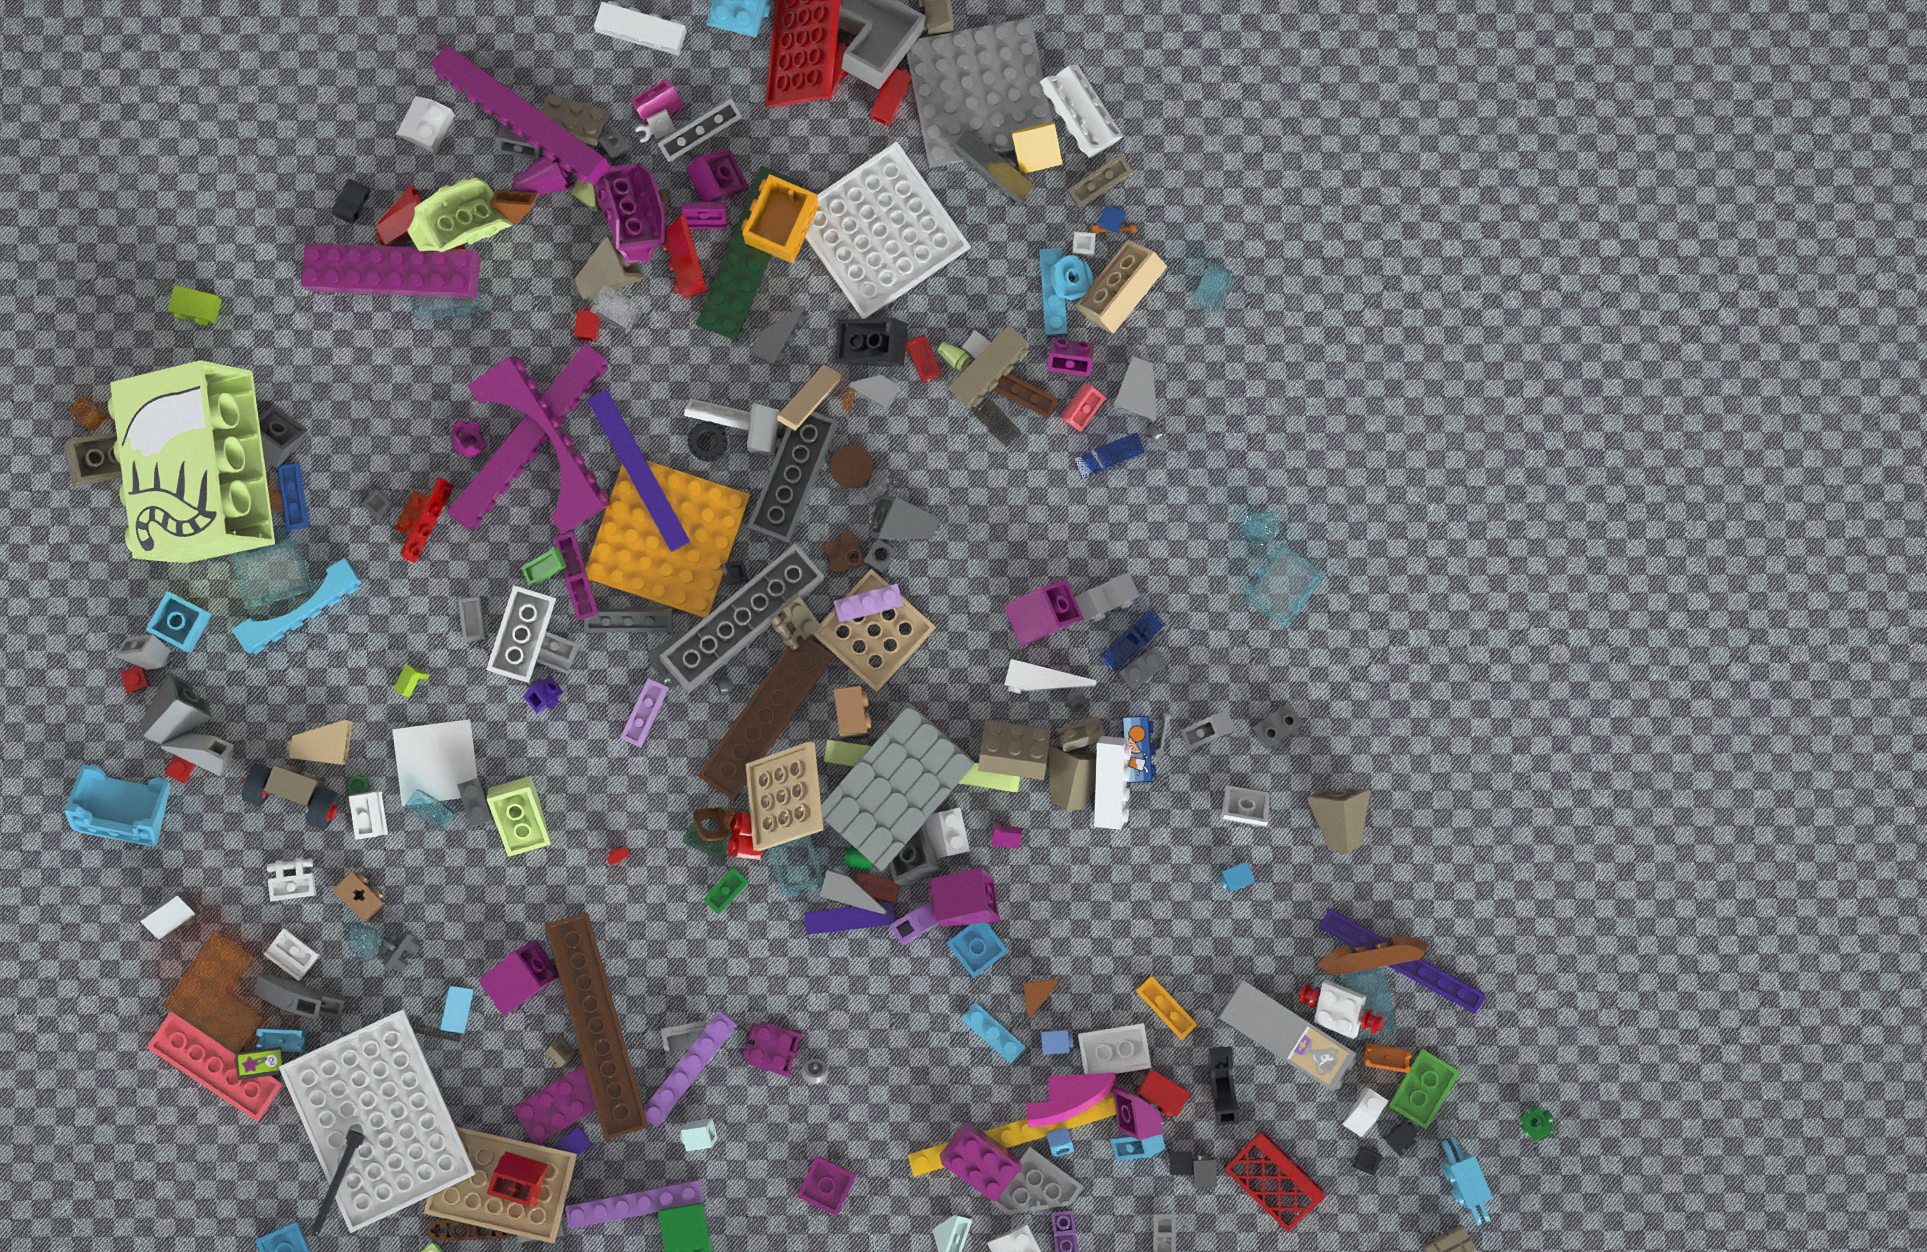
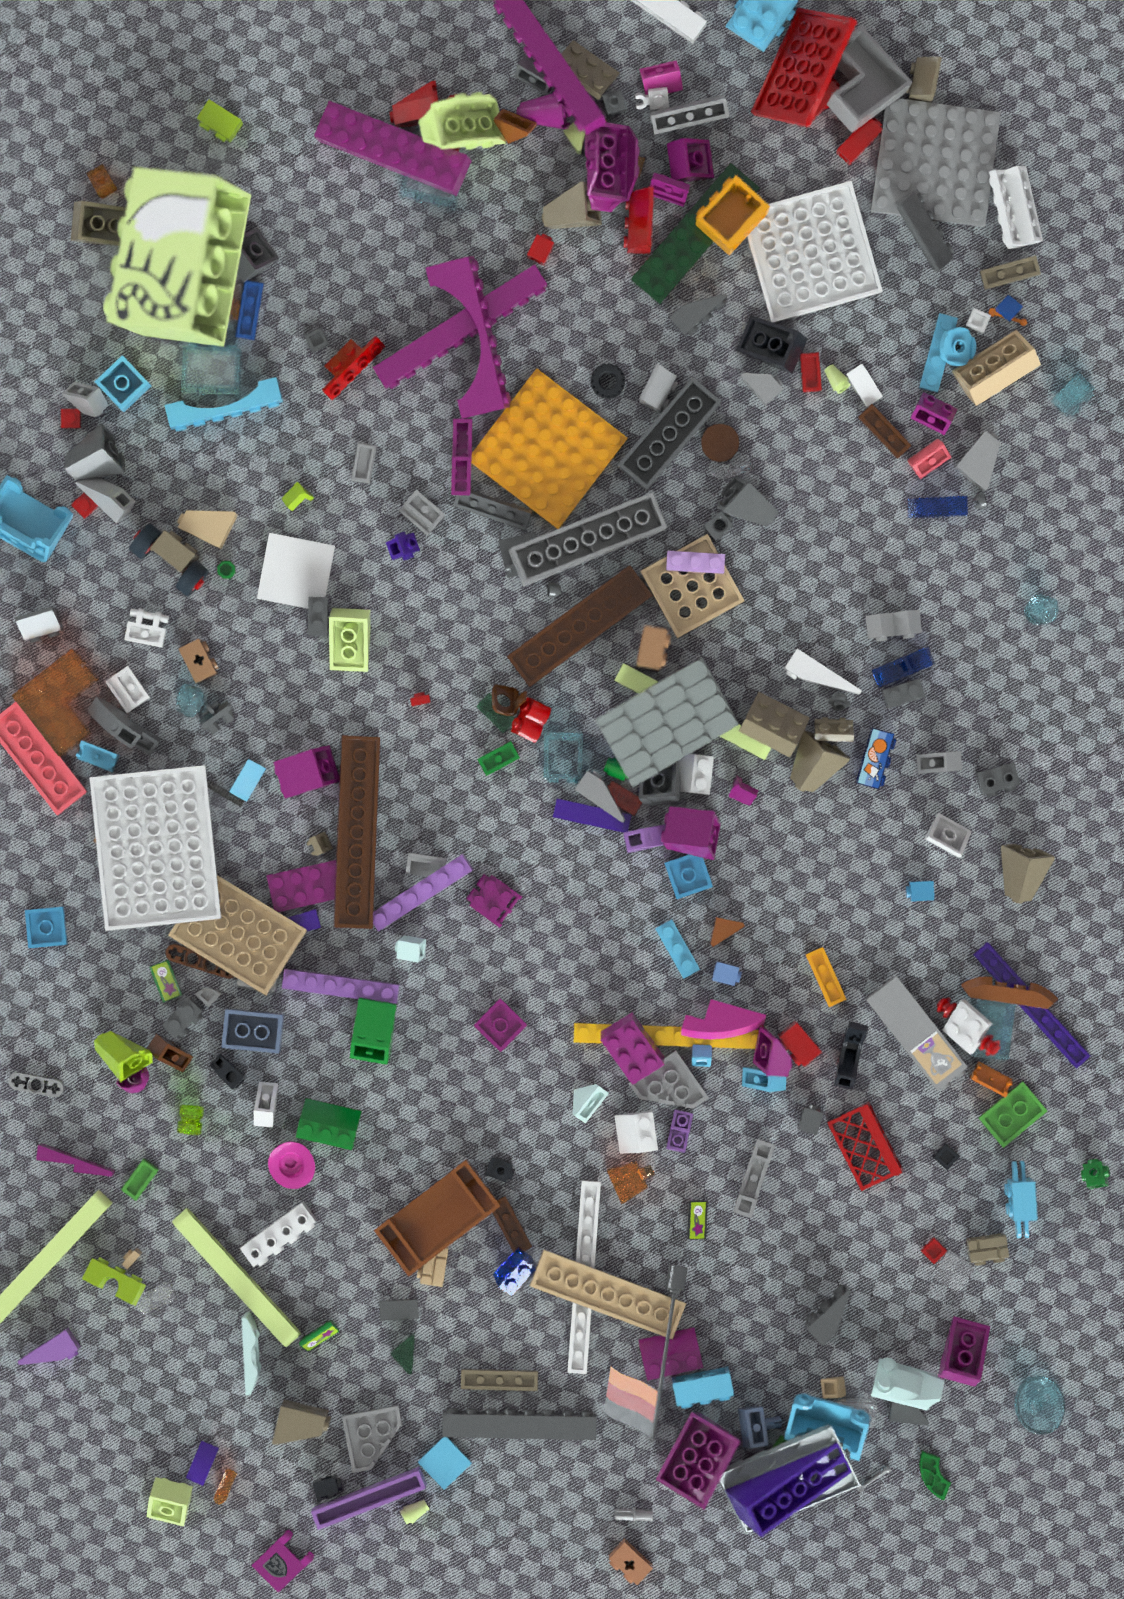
camera: 20 degrees right, 5 degrees up
(258, 1063) = (73, 768): slope -> none
(351, 201) = (378, 76): black axle -> none
(353, 1141) = (131, 858): black piece -> none
(368, 814) = (227, 596): white plate -> none
(426, 123) = (461, 30): white slope -> none
(431, 809) = (279, 609): clear light blue slope -> none
(467, 439) = (409, 311): magenta hair -> none
(518, 1179) = (254, 934): red slope -> none
(521, 634) = (401, 490): white slope -> none
(543, 566) = (437, 440): bright green tile -> none
(616, 309) = (569, 245): clear slope -> none
(638, 470) = (543, 386): dark purple tile -> none
(644, 712) = (480, 589): lavender plate -> none
(718, 414) = (624, 361): white tile -> none
(734, 573) = (593, 499): black tile -> none
(799, 616) = (635, 554): dark tan plate -> none
(809, 397) = (705, 374): tan tile -> none
(809, 800) = (578, 708): tan piece -> none
(815, 1071) = (522, 930): light grey hat -> none
(842, 550) = (687, 511): reddish brown plate -> none
(848, 400) = (737, 386): clear orange tile -> none
(989, 367) = (862, 399): dark tan brick -> none
(997, 423) = (853, 447): clear smoke slope -> none
(1036, 147) = (967, 226): yellow tile -> none
(1043, 612) = (837, 619): magenta slope -> none
(1111, 782) = (845, 778): white brick -> none
(1115, 1050) = (772, 996): white plate -> none
(1160, 752) = (893, 767): light grey hinge -> none
(1180, 1163) = (793, 1105): black tile -> none
(1283, 586) = (1043, 665): window -> none
(1365, 1112) = (958, 1116): white slope -> none
(1401, 1137) = (980, 1146): black brick -> none

